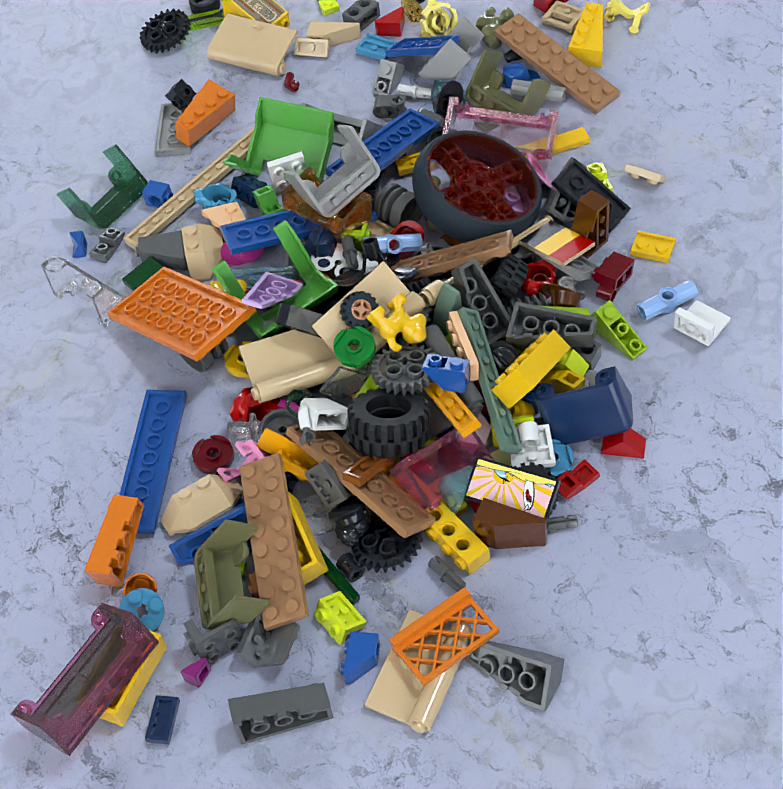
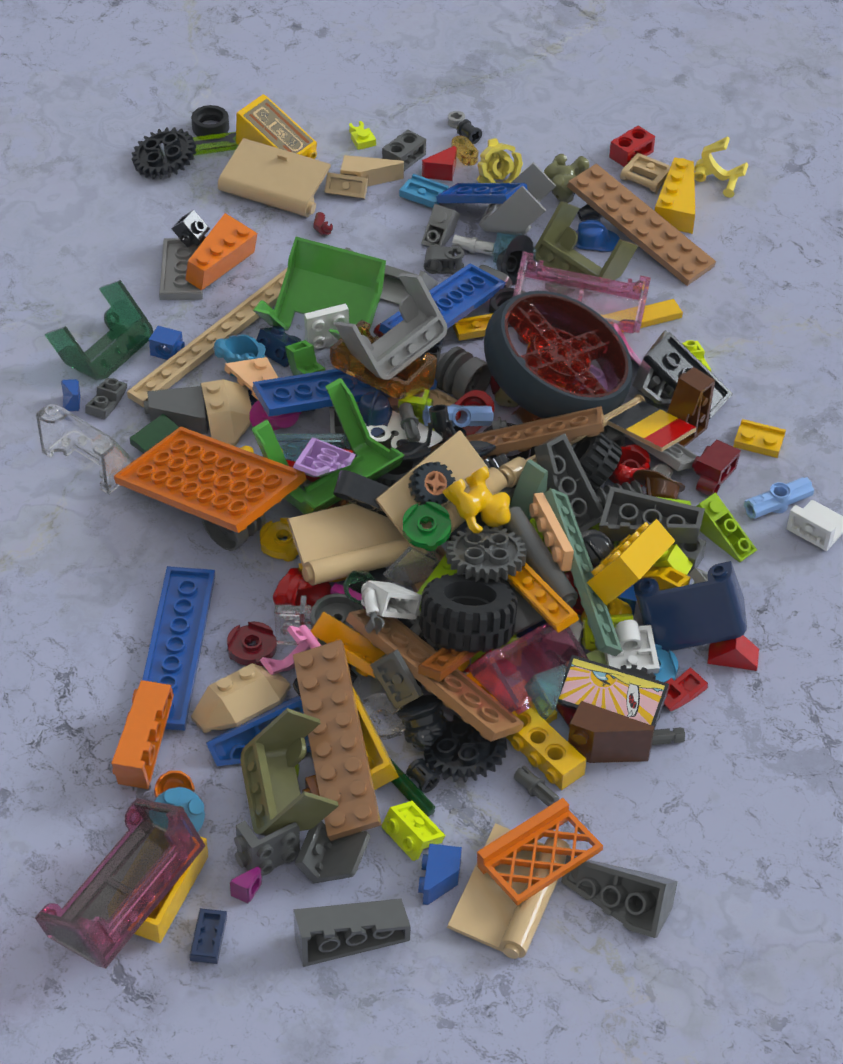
camera: 10 degrees left, 5 degrees down
(448, 372) = (538, 558): blue slope -> none
(554, 93) = (603, 250): light grey piece -> none
(637, 172) = (756, 360): tan plate -> none

